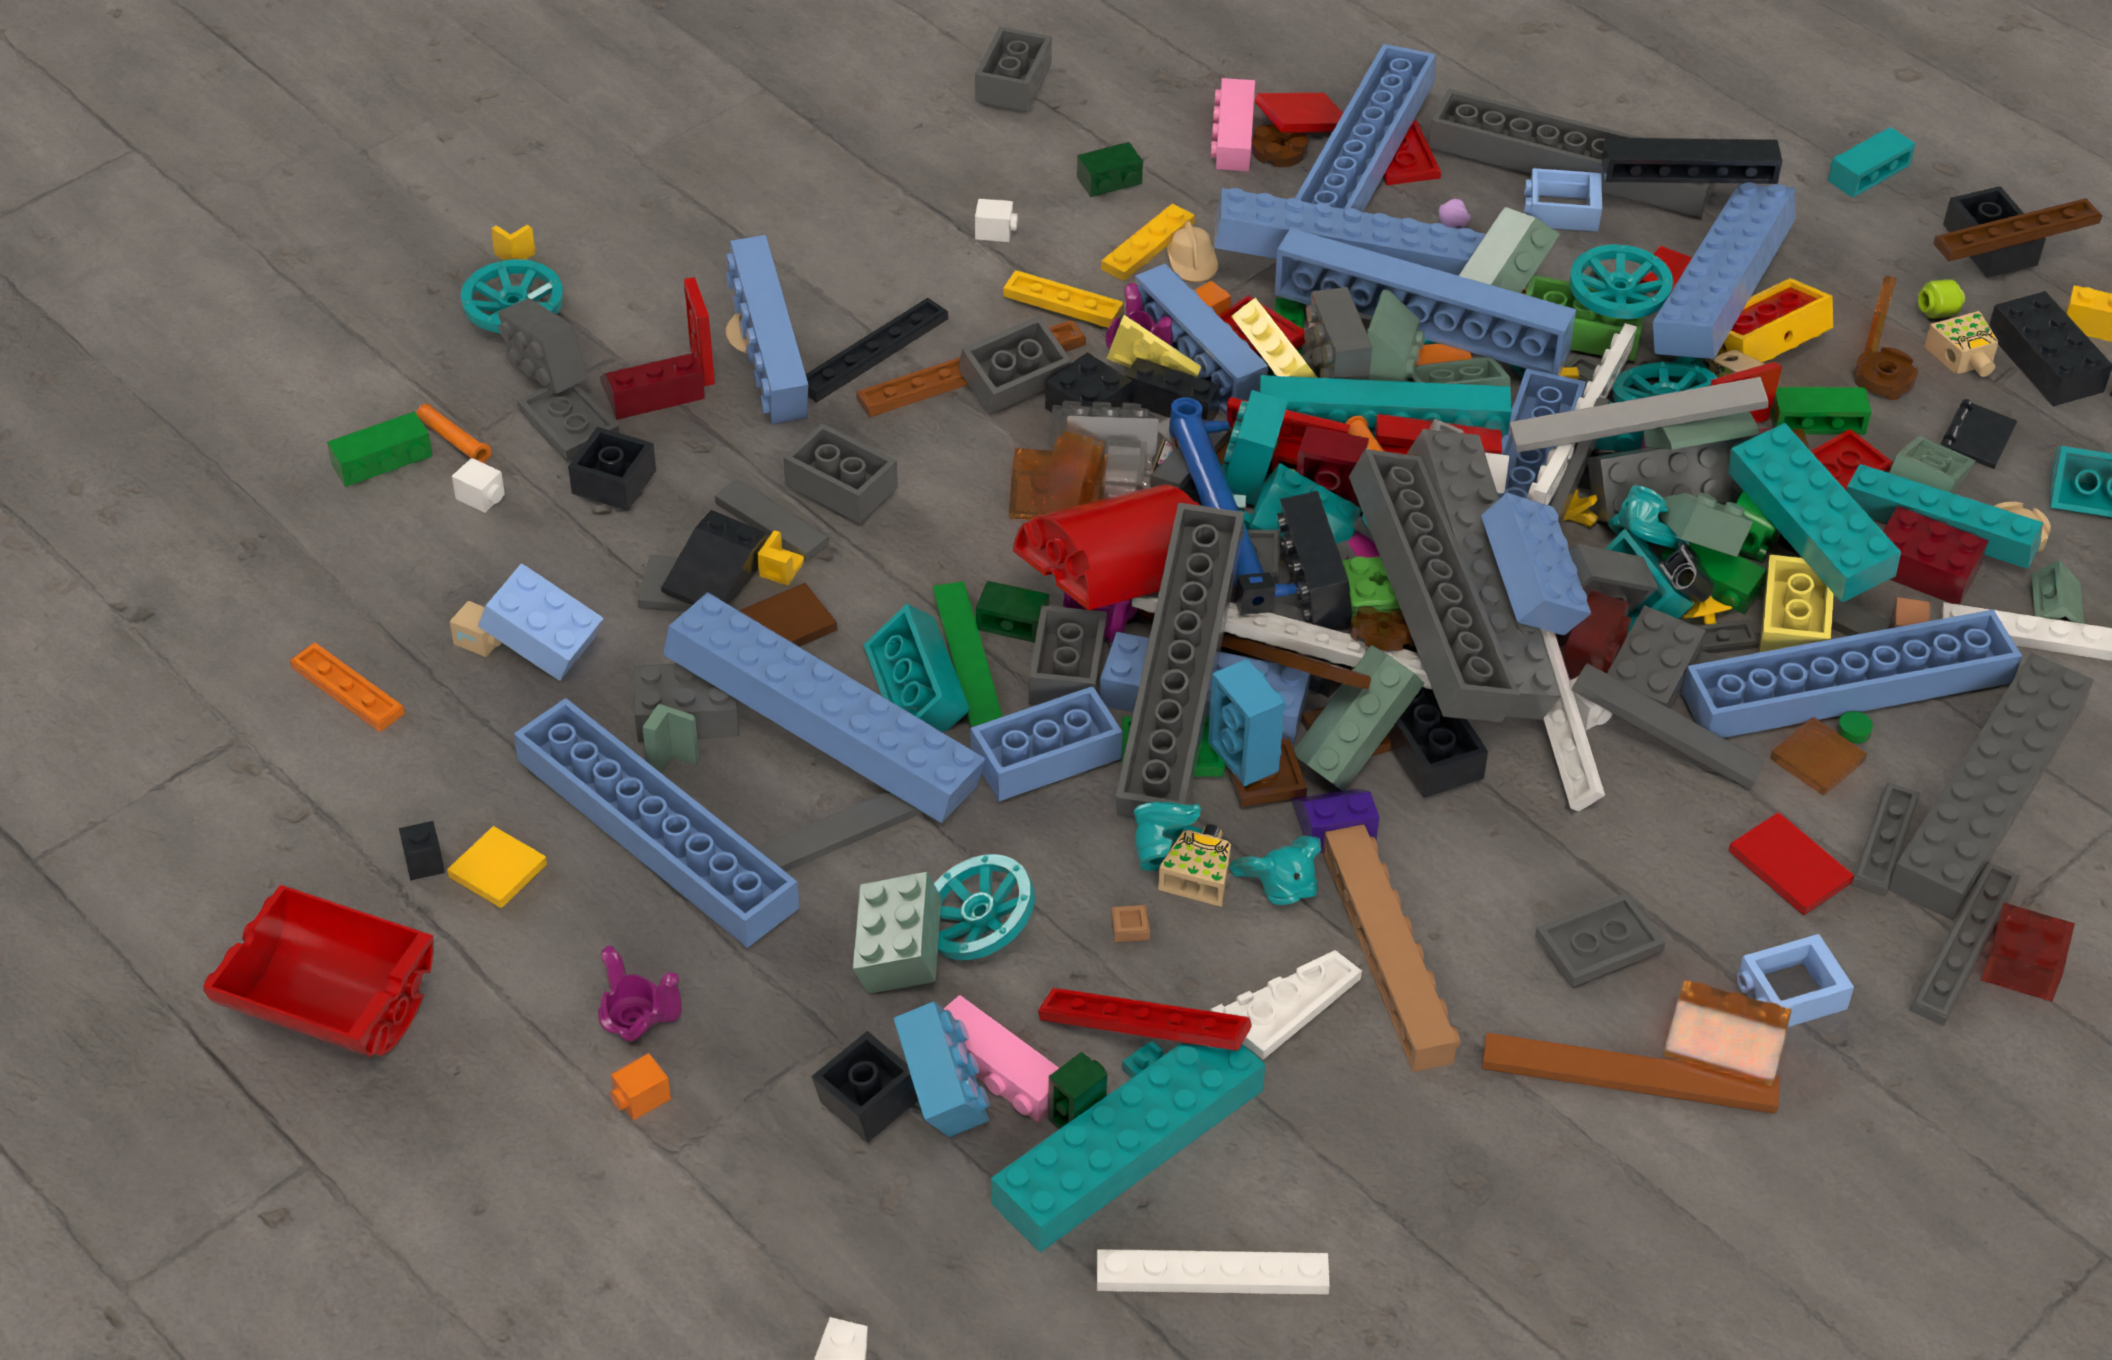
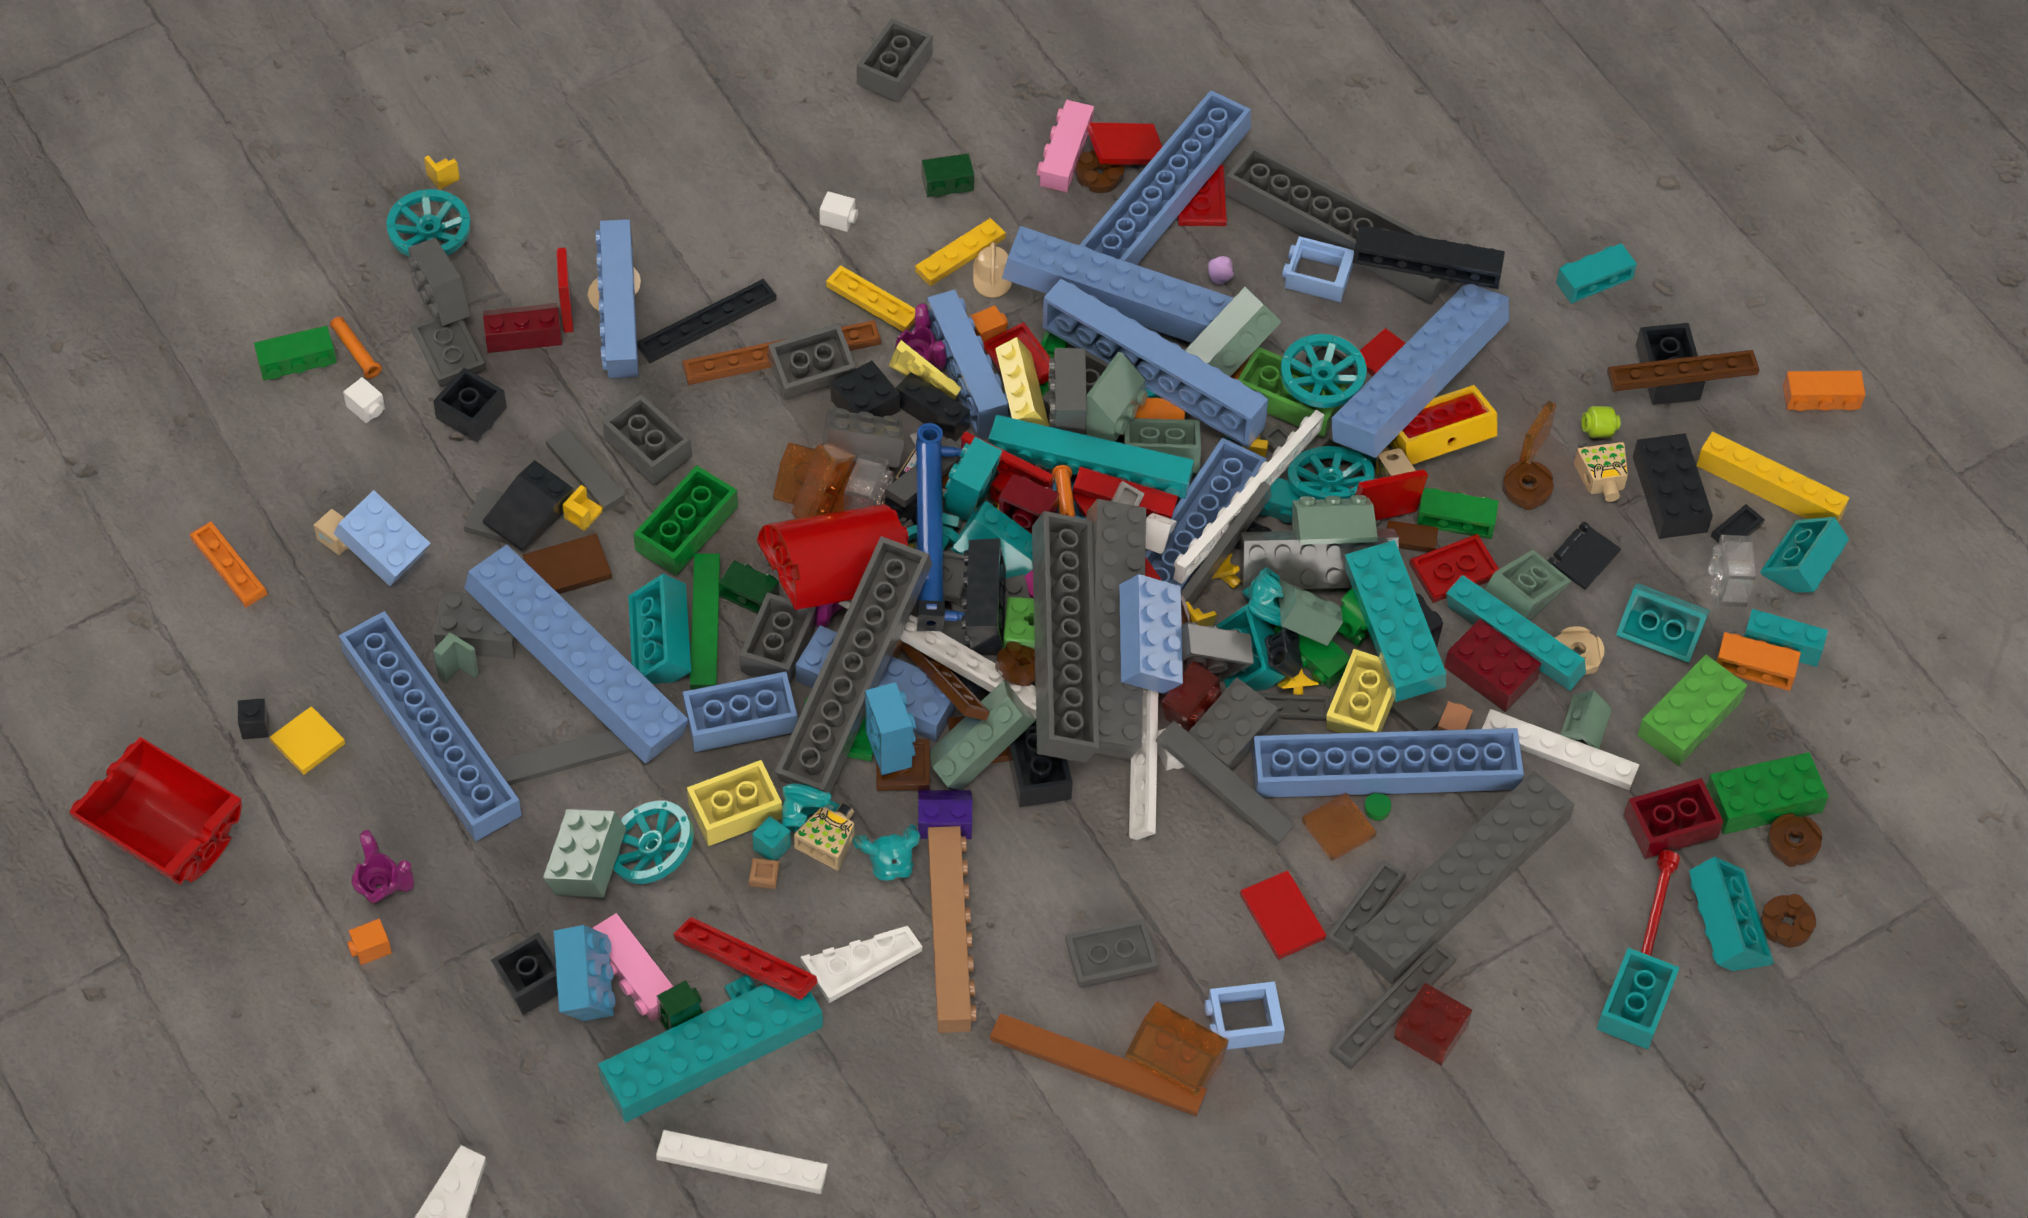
camera: 10 degrees right, 10 degrees up
(913, 549) = (685, 520): none -> green brick
(1072, 844) = (734, 802): none -> light yellow brick
(1130, 880) = (771, 839): none -> teal brick
(1638, 414) = (1281, 510): light grey tile -> none

